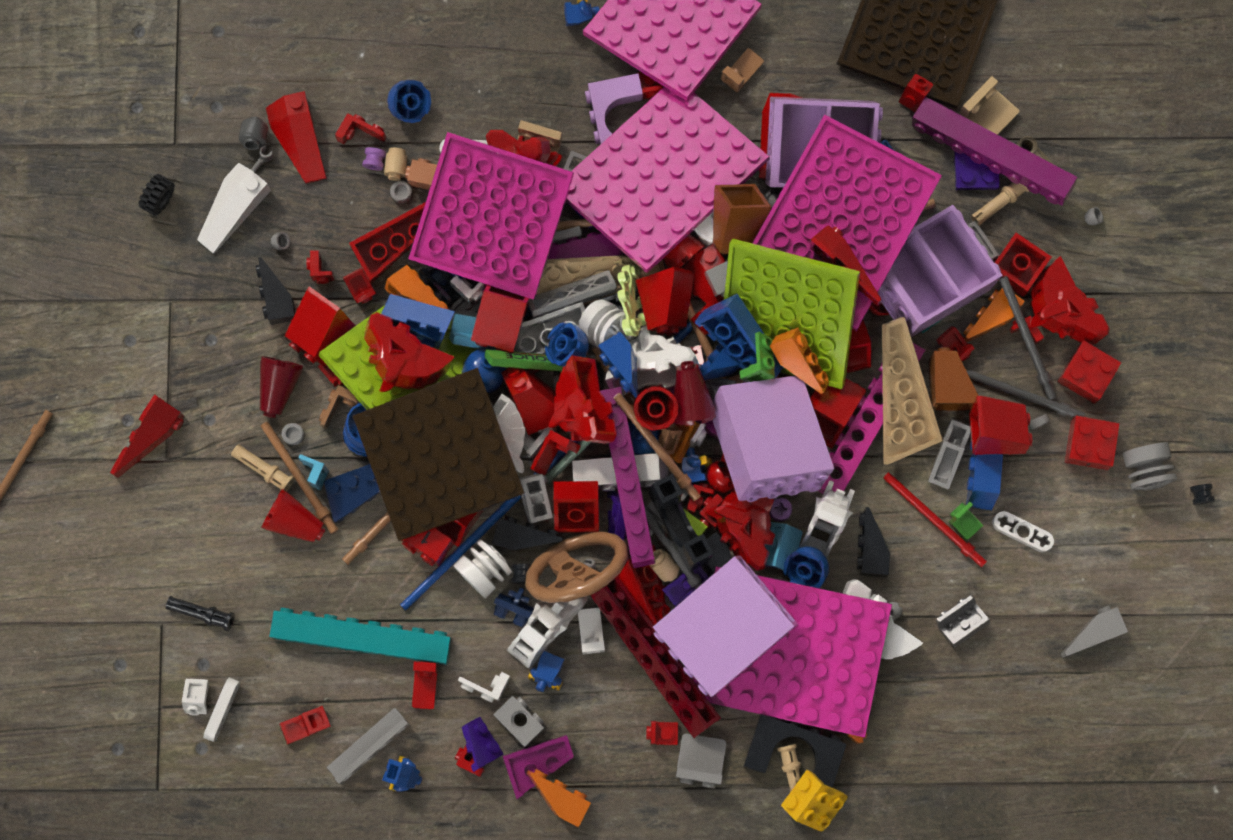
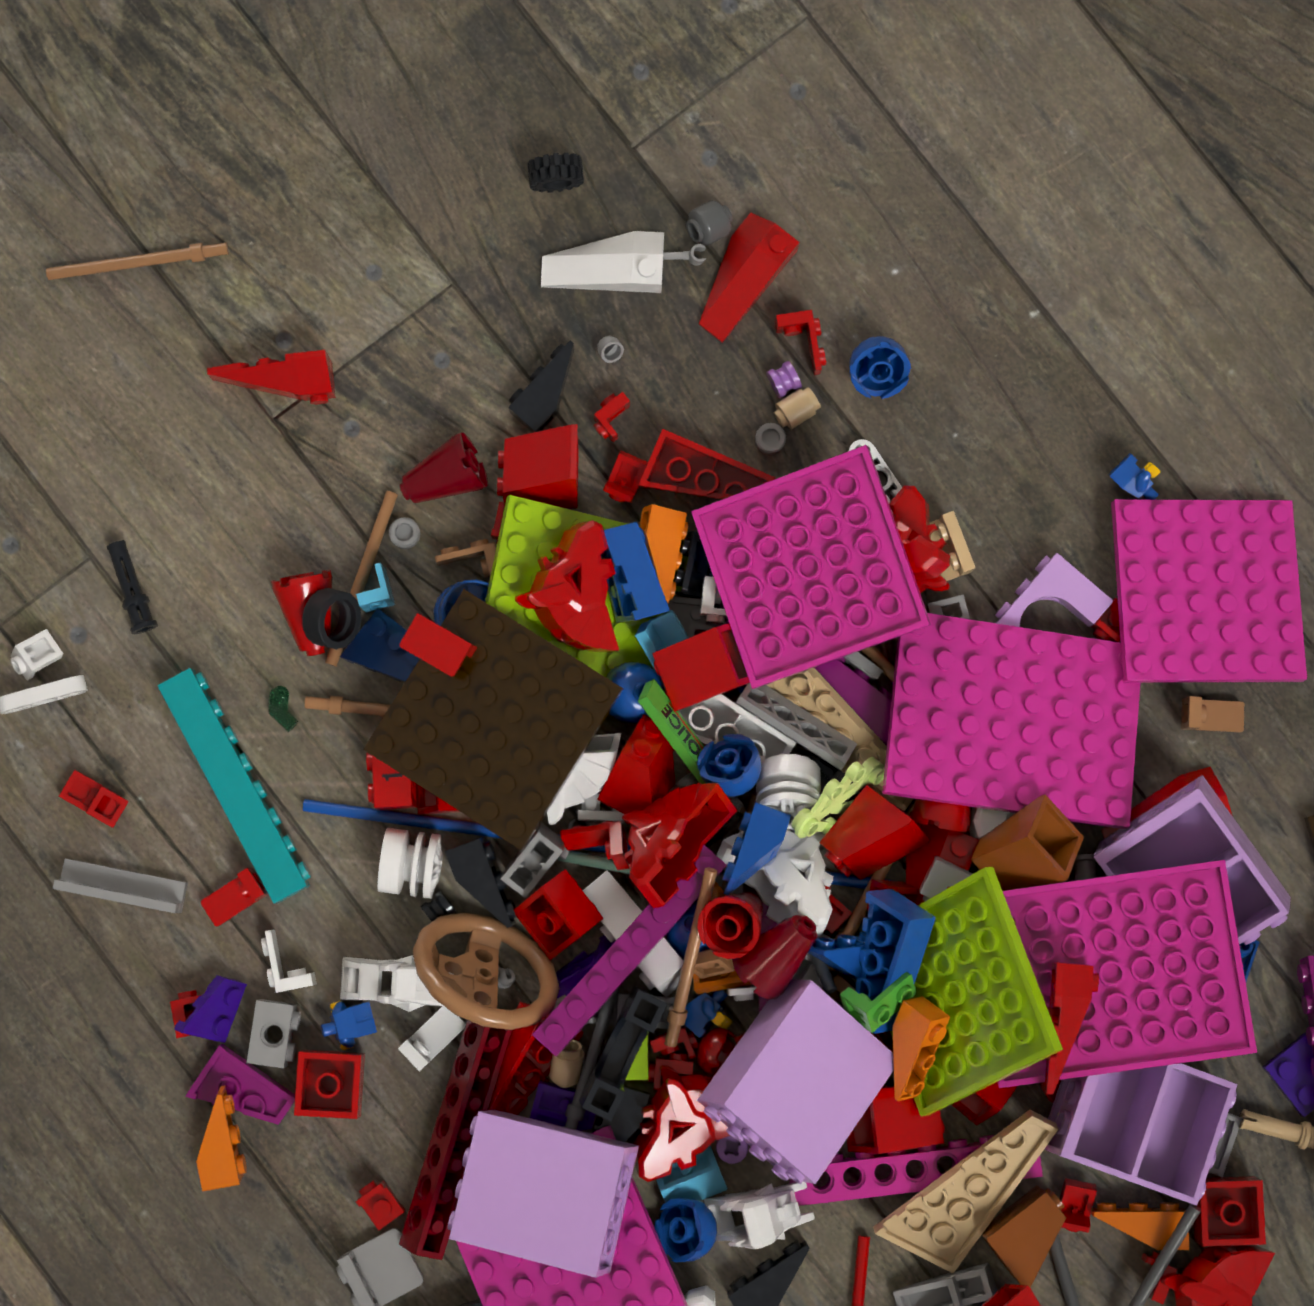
camera: 50 degrees right, 5 degrees up
(270, 473) = (341, 543): tan pin -> none
(302, 513) = (315, 614): none -> black tyre
(335, 579) = (279, 708): none -> clear green arm
(372, 451) = (436, 645): none -> red panel
(401, 774) = (117, 949): blue piece -> none
(420, 173) = (807, 445): nougat brick -> none
(505, 603) = (399, 930): dark blue hips -> none
(573, 708) = (329, 1084): none -> red brick

